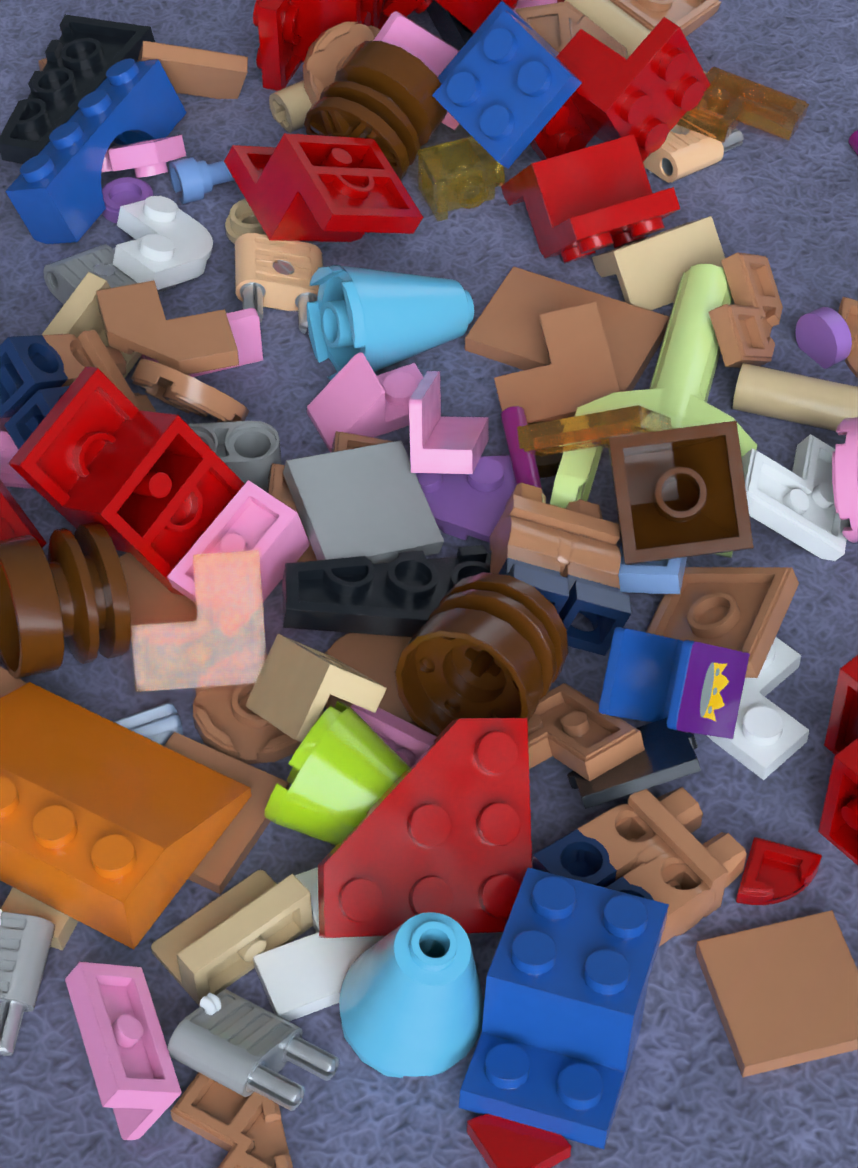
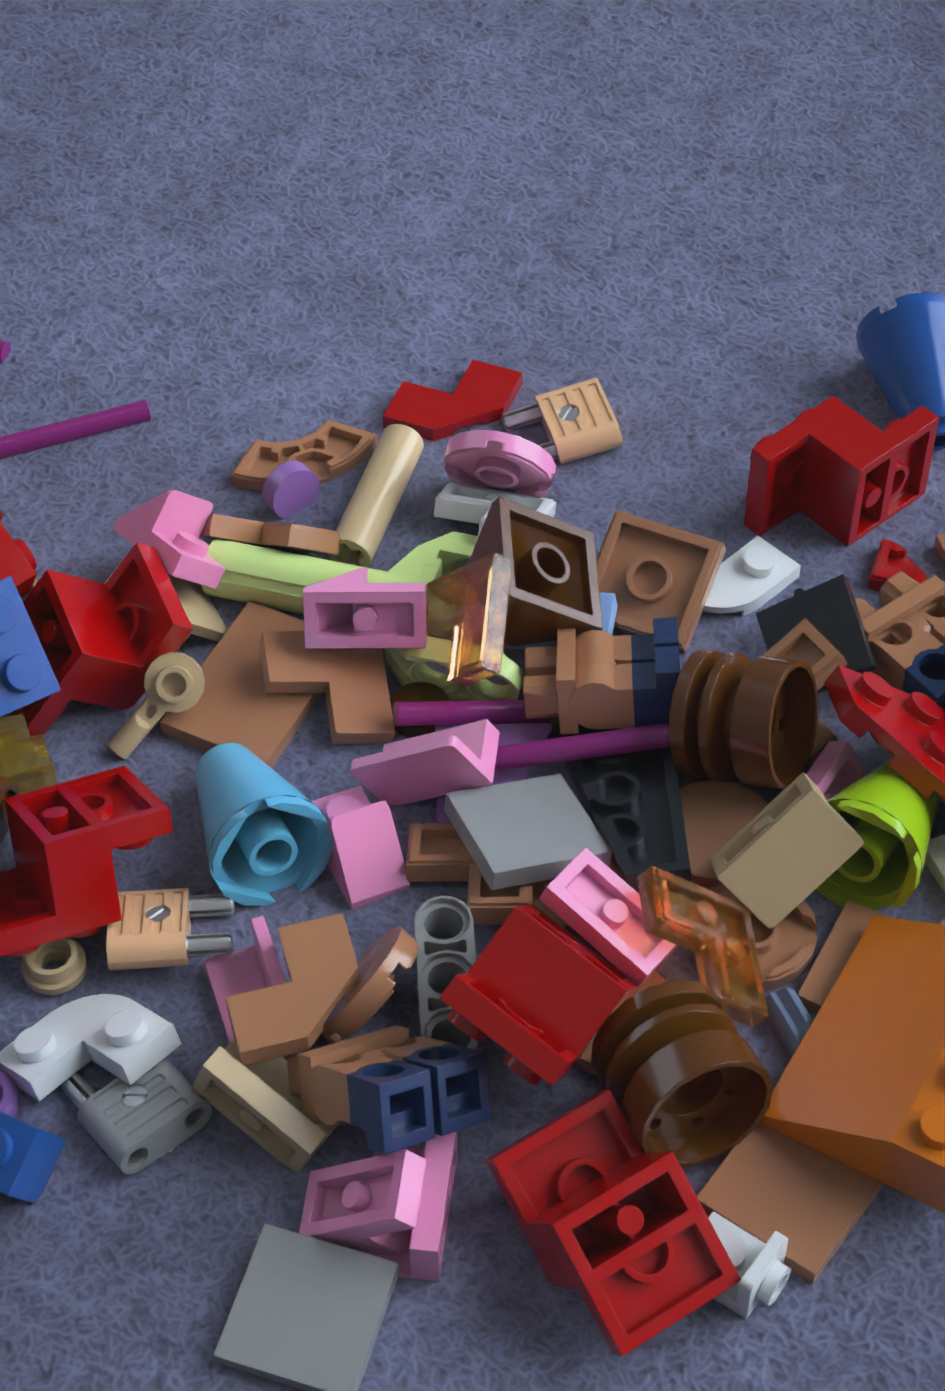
camera: 90 degrees left, 0 degrees up
(463, 526) = (582, 746): none -> magenta bar
(533, 255) = (172, 685): none -> tan plate
(611, 355) = (364, 614): none -> bright pink slope
(675, 679) = (762, 565): piece -> none
(698, 235) = (173, 527): none -> bright pink slope

